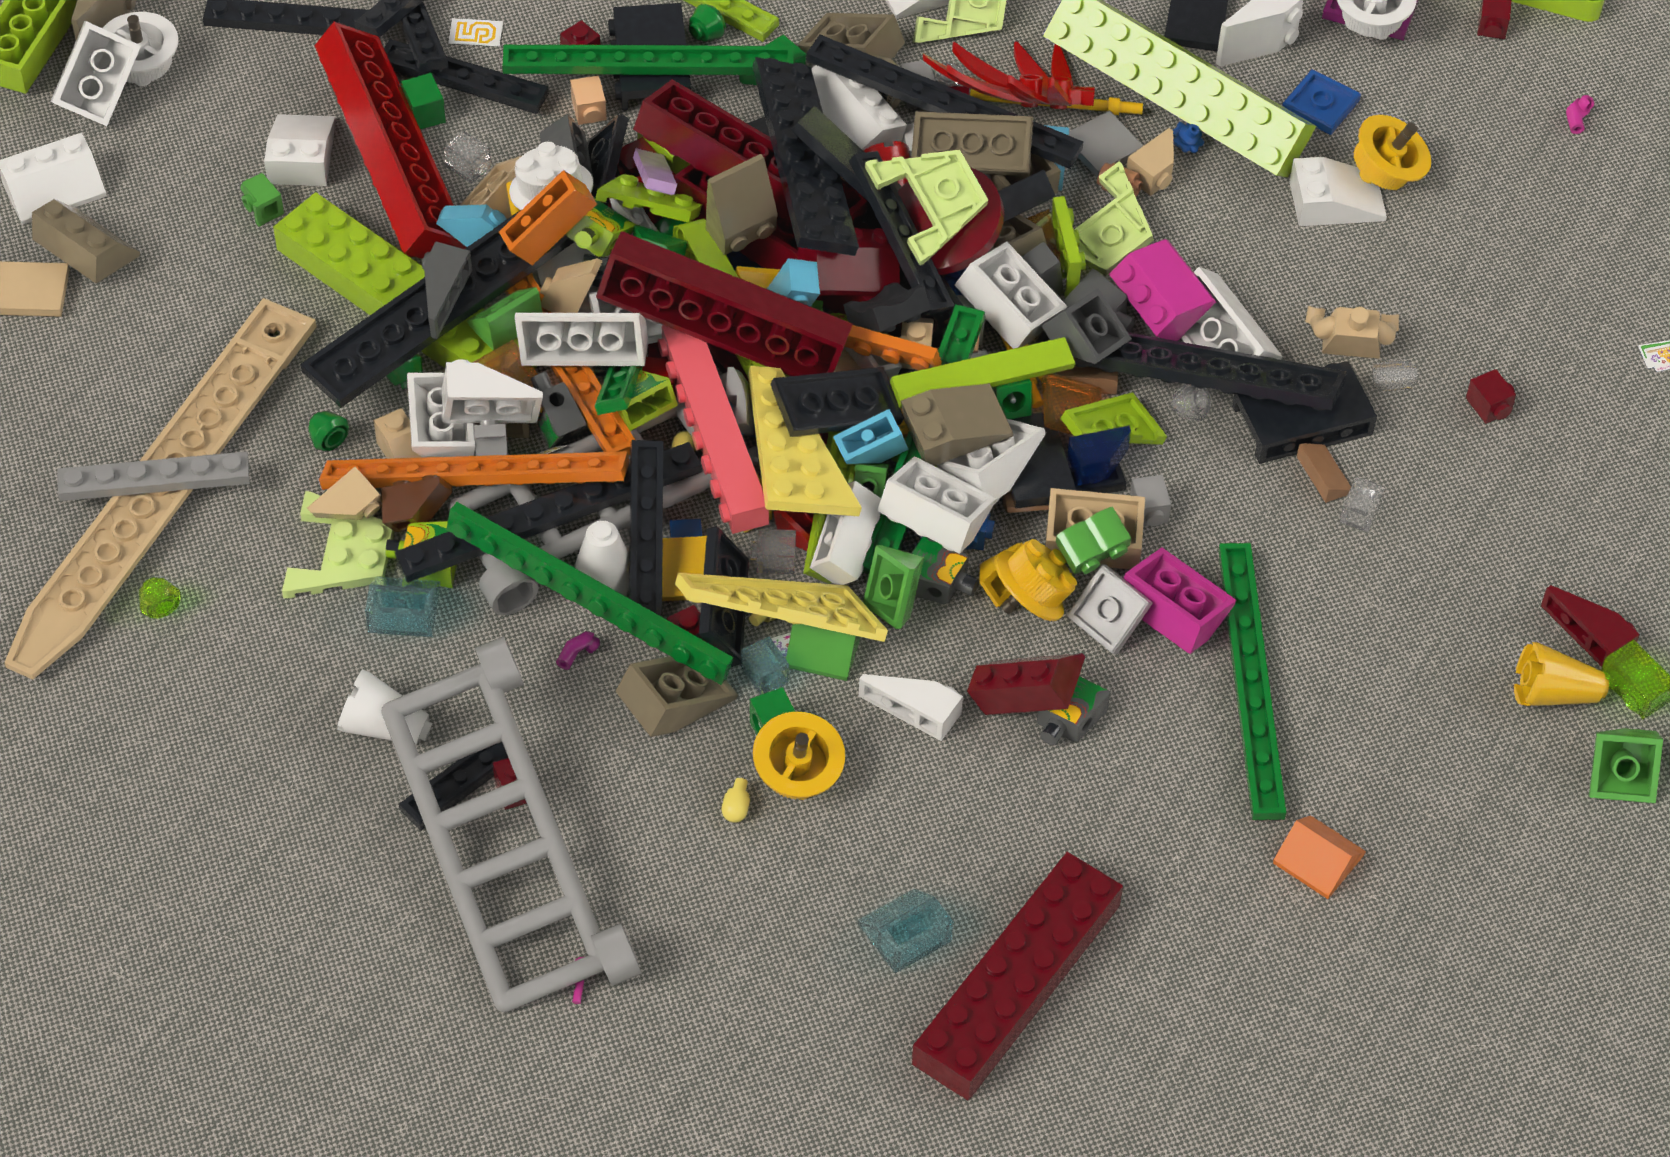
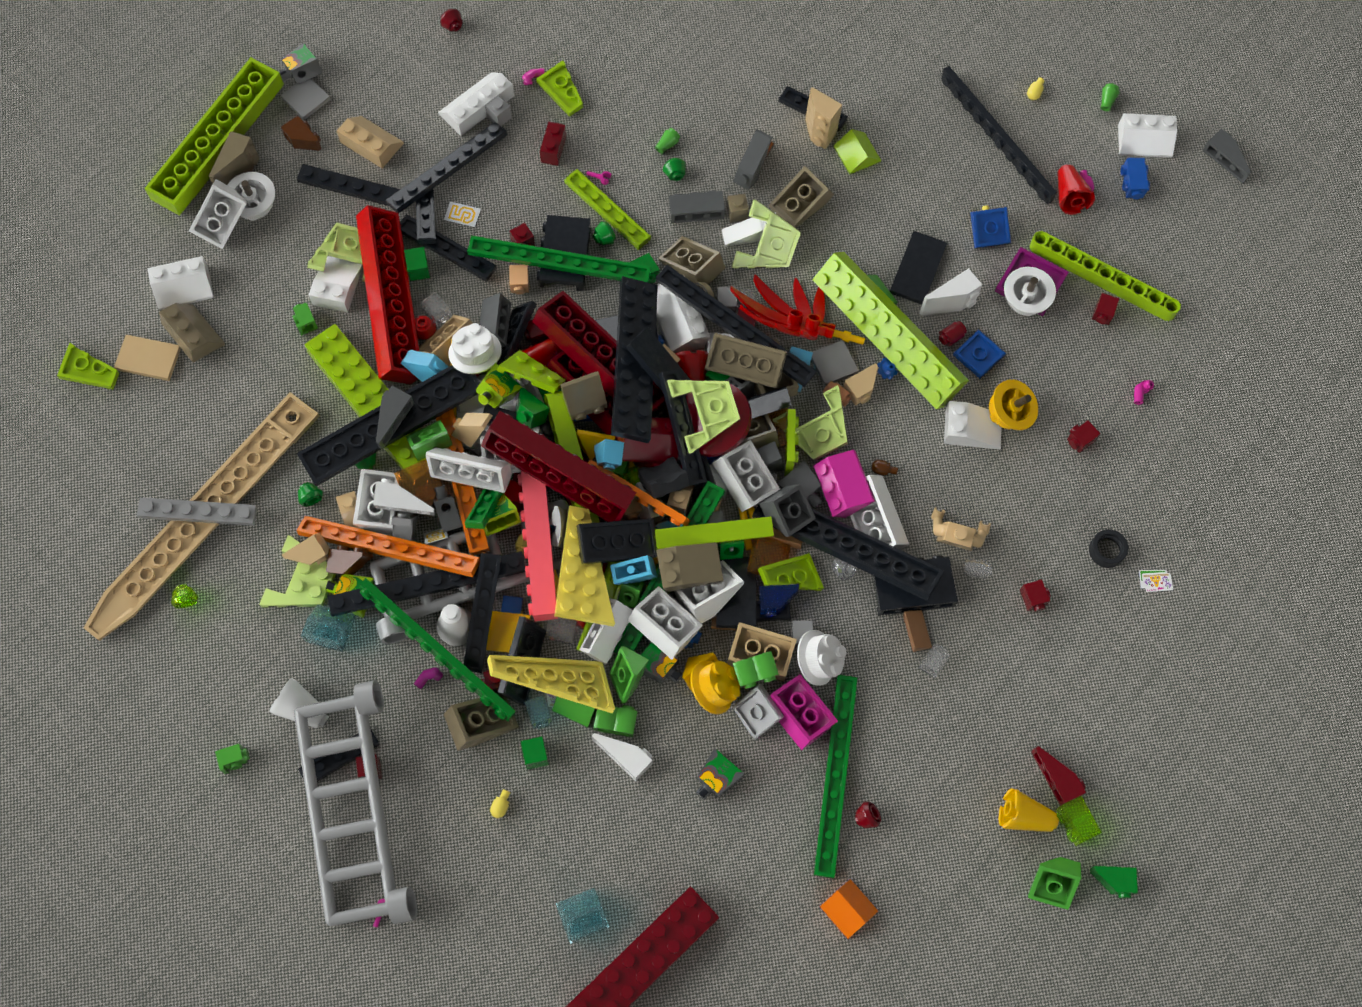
camera: 10 degrees right, 15 degrees up
(289, 803) = (232, 757): none -> bright green brick
(300, 90) = (340, 243): none -> yellowish green wing
(457, 183) = (424, 327): none -> red cone
(547, 217) = (462, 382): orange brick -> none
(655, 171) = (541, 352): lavender tile -> none
(798, 755) = (541, 786): yellow piece -> none
(896, 657) = (619, 722): none -> bright green brick
(1026, 683) = (694, 757): dark red slope -> none
(1188, 518) = (820, 657): none -> white piece
(1218, 265) = (883, 468): none -> reddish brown cylinder
(1274, 78) = (952, 333): none -> dark red brick
(1315, 723) = (868, 815): none -> dark red cone
(1506, 181) = (1083, 436): none -> dark red brick
(1578, 336) = (1114, 536): none -> black tyre

